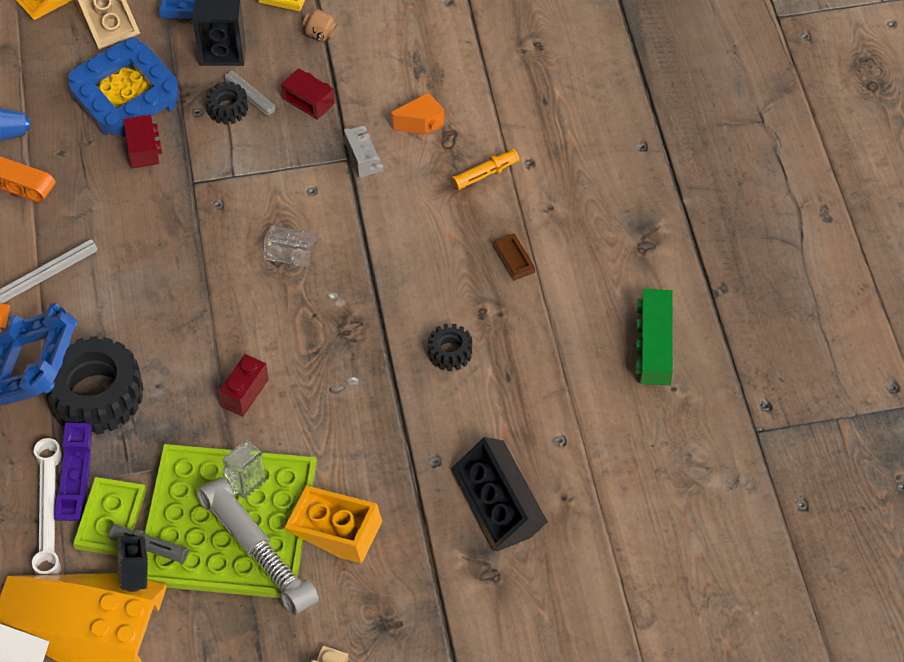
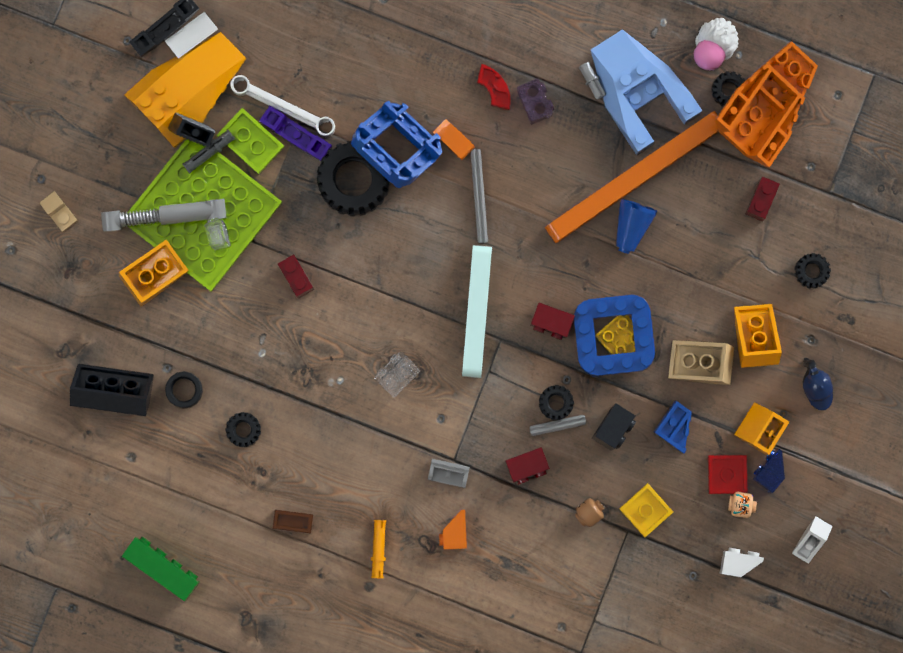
camera: 120 degrees right, 30 degrees up
(173, 210) = (477, 311): none -> light aqua beam
(447, 408) = (169, 389): none -> black tyre

